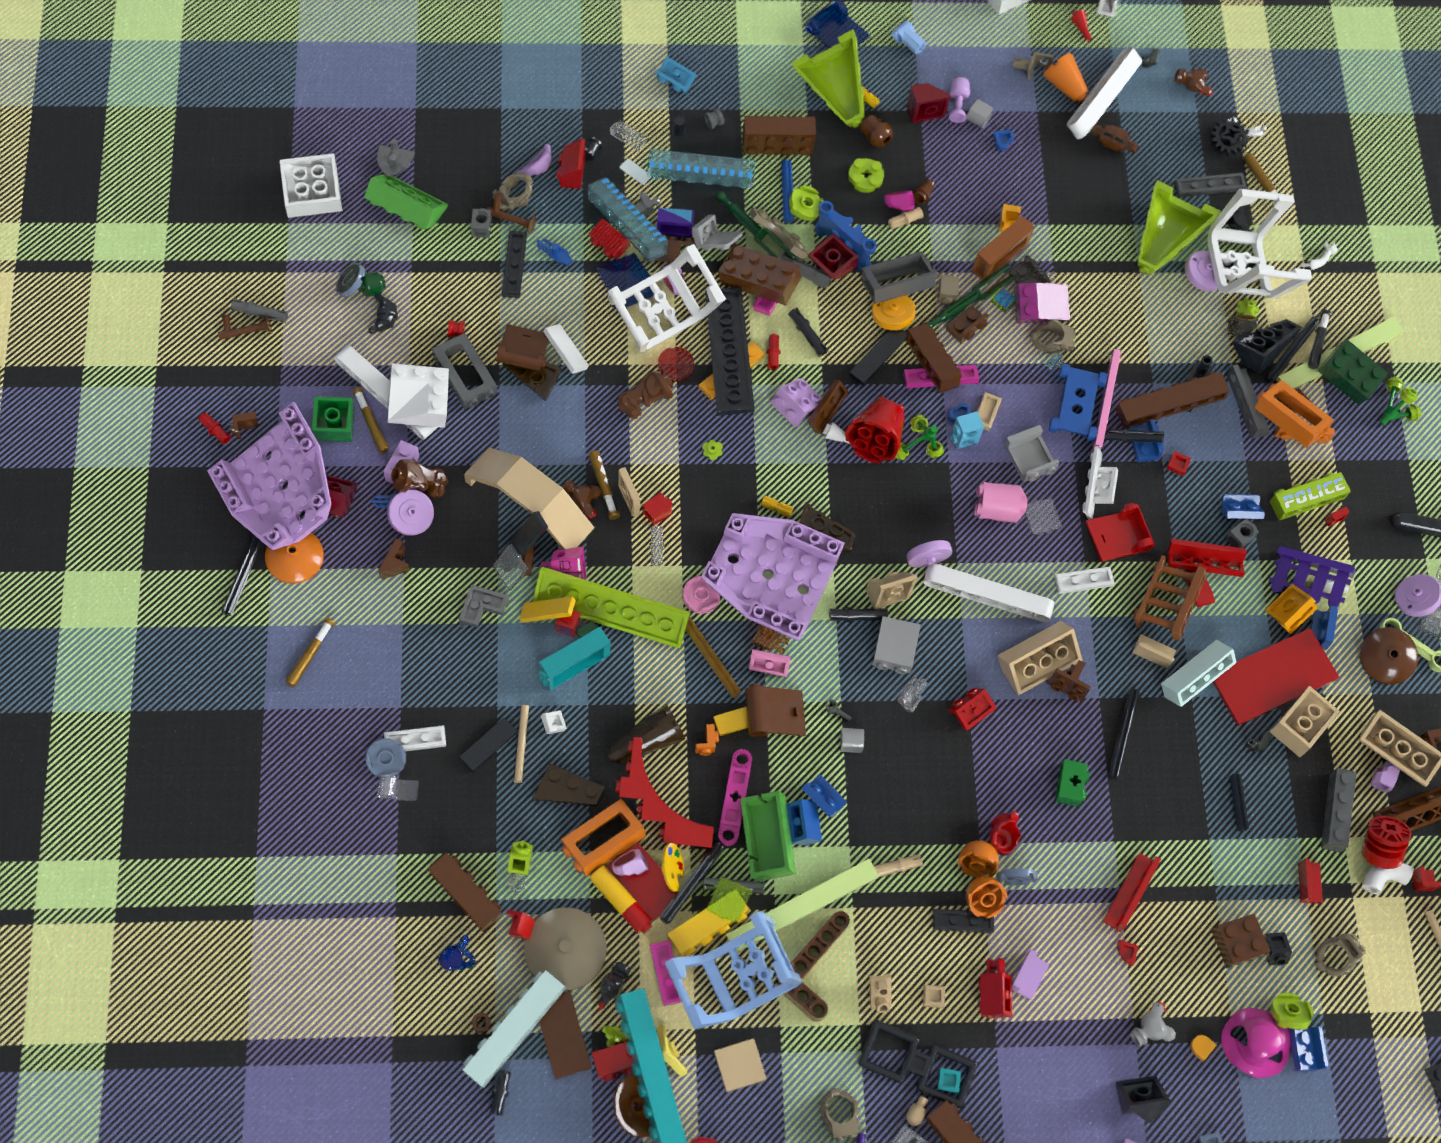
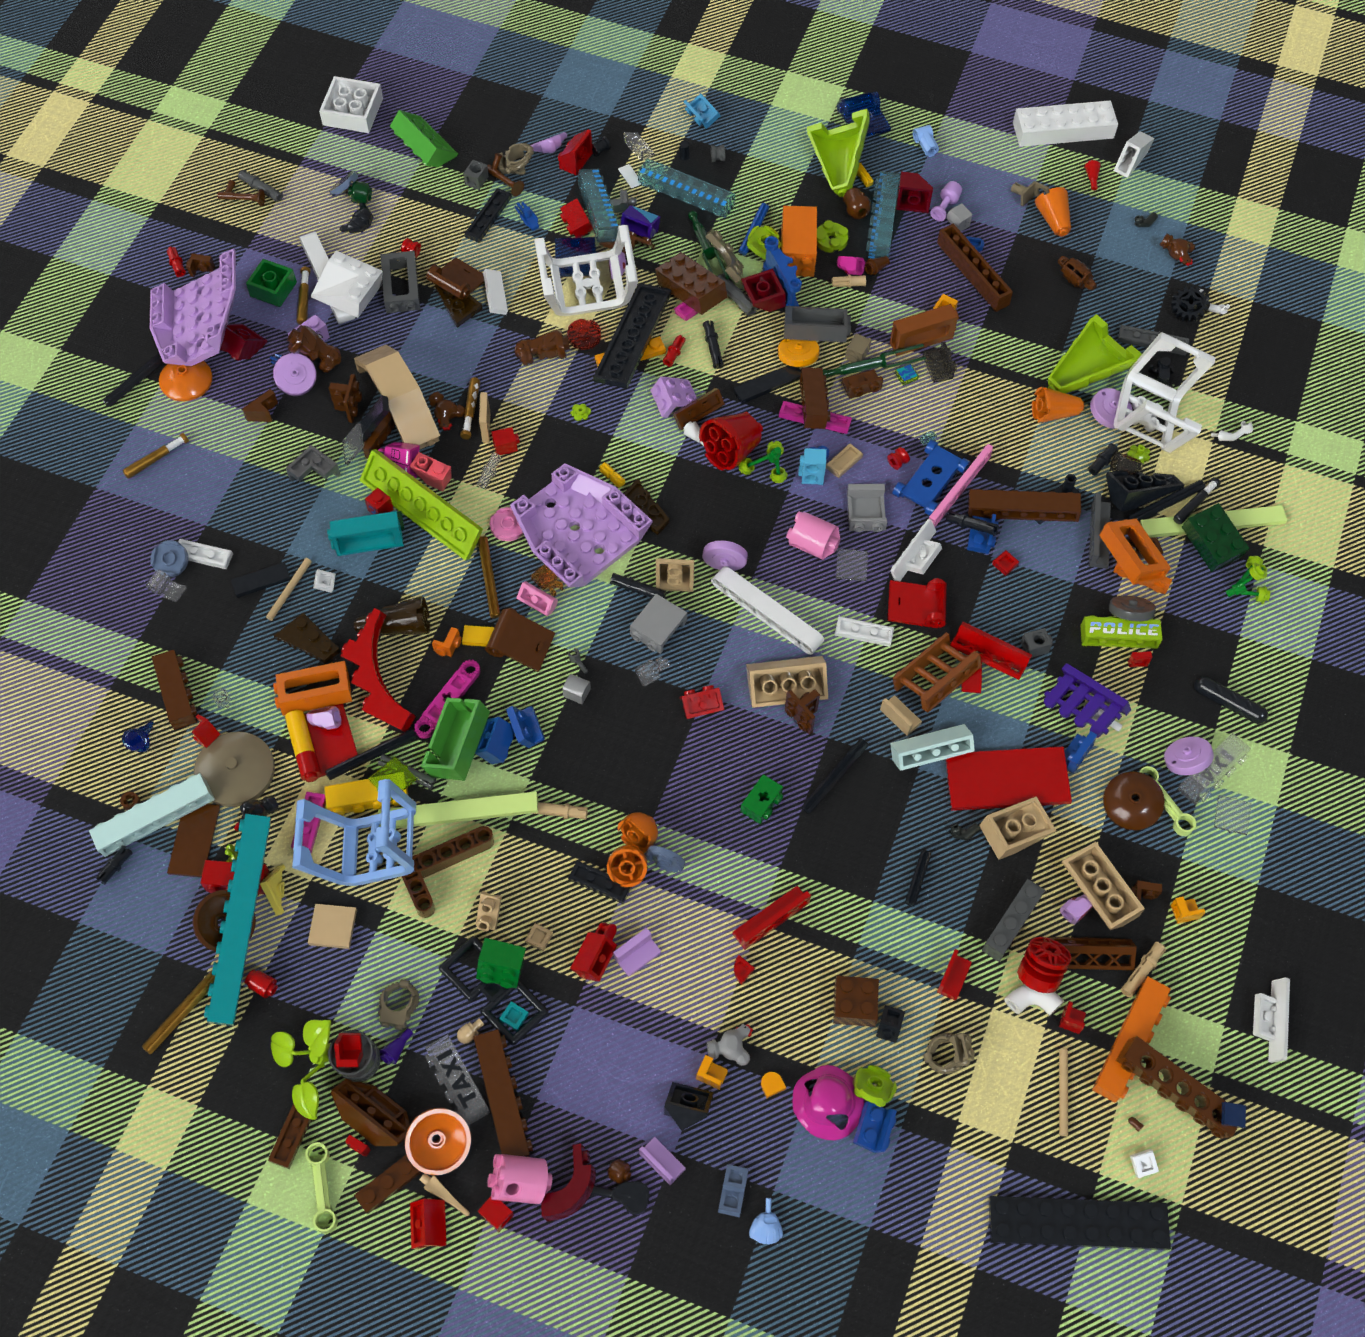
camera: 30 degrees right, 5 degrees down
(392, 159) = (430, 106): flat silver shield -> none
(479, 520) = (346, 397): none -> reddish brown bracket
(520, 858) = (233, 677): lime brick -> none
(547, 609) = (364, 486): yellow tile -> none
(603, 568) = (431, 471): none -> coral slope
(672, 864) = (362, 729): yellow piece -> none
(707, 235) = (664, 237): light grey bracket -> none
(778, 135) = (765, 180): reddish brown piece -> none
(841, 185) = (800, 238): none -> orange brick
(907, 135) = (883, 214): none -> clear light blue brick
(921, 1038) = (500, 963): none -> green brick
(1005, 833) = (674, 819): red hair -> none
(1018, 164) = (974, 267): none -> reddish brown brick
(1037, 392) = (898, 458): none -> red wheel
(1041, 302) = (939, 385): slope -> none
(1065, 332) = (947, 425): dark tan piece -> none
(1104, 92) = (1085, 233): white beam -> none
(1147, 1059) = (711, 1073): none -> light orange panel
(1154, 287) = (1055, 405): none -> orange cone
(1219, 326) = (1103, 459): none -> black pin
(1241, 506) = (1048, 617): blue bracket -> none
(1259, 173) = (1205, 342): pearl gold piece -> none
(1292, 608) = (1053, 724): light orange bracket -> none
(1311, 469) = (1132, 608): none -> dark grey wheel

